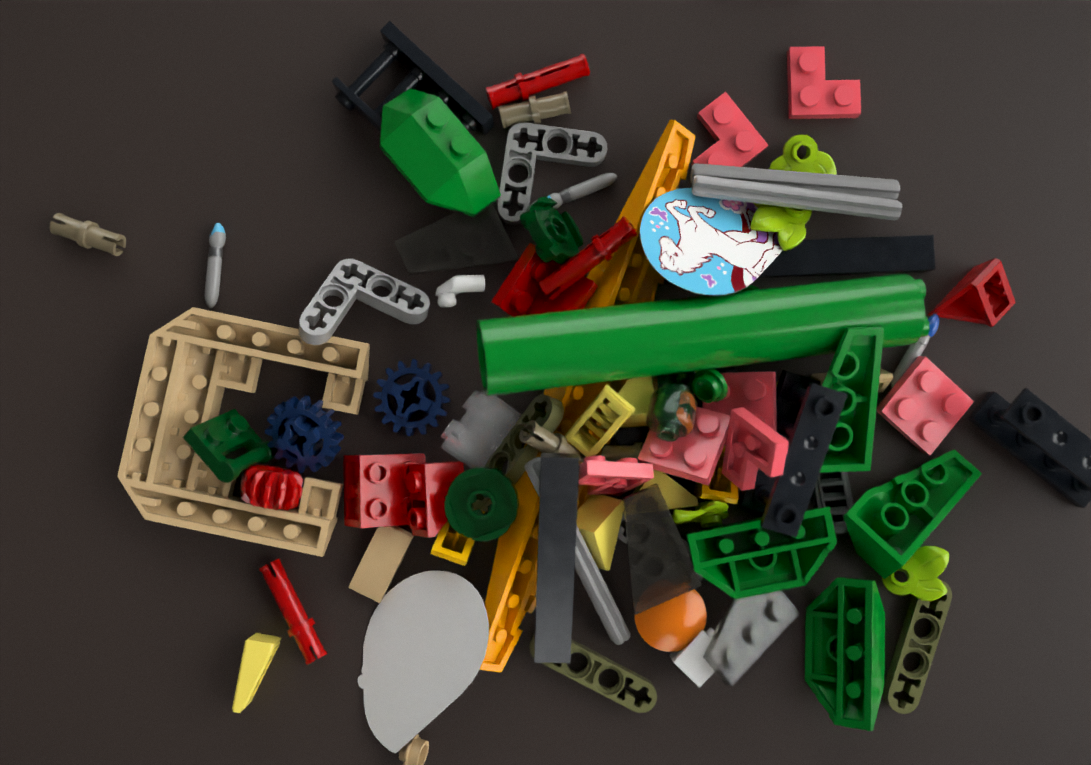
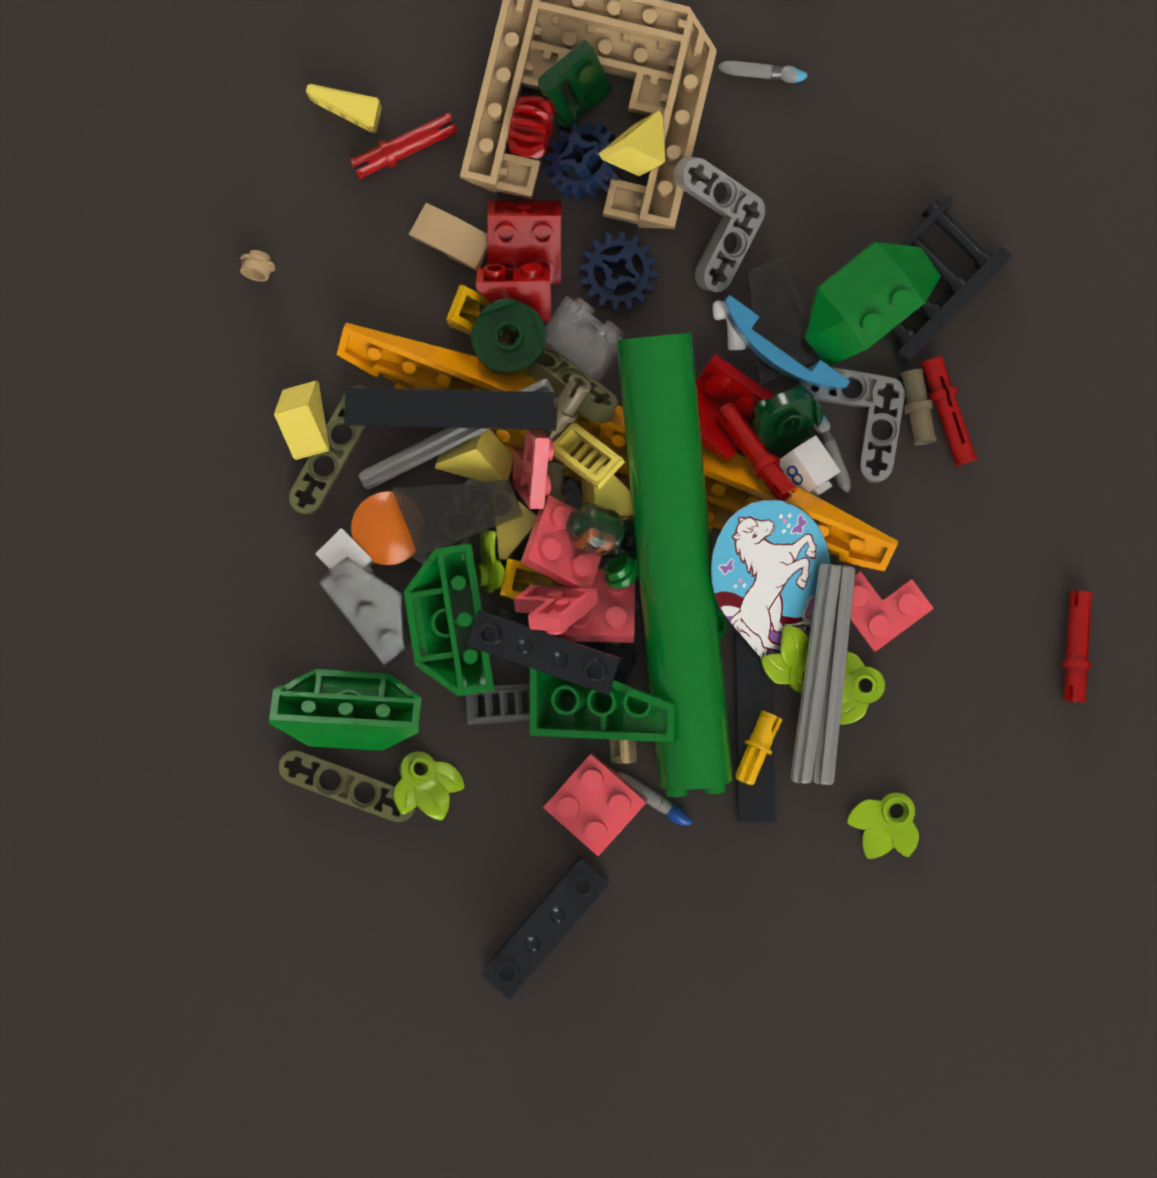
camera: 90 degrees right, 0 degrees up
(289, 380) = (639, 147): none -> light yellow slope
(421, 653) = (358, 273): white sticker -> none
(460, 273) = (743, 320): none -> dark azure slope
(565, 703) = (302, 420): none -> light yellow slope
(597, 208) = (810, 466): none -> white brick
(814, 96) = (929, 701): coral plate -> none
(868, 251) = (757, 747): none -> yellow axle
(901, 514) = (482, 768): green wedge -> none
(934, 134) = (881, 829): none -> lime plate
(979, 297) = (706, 867): red slope -> none

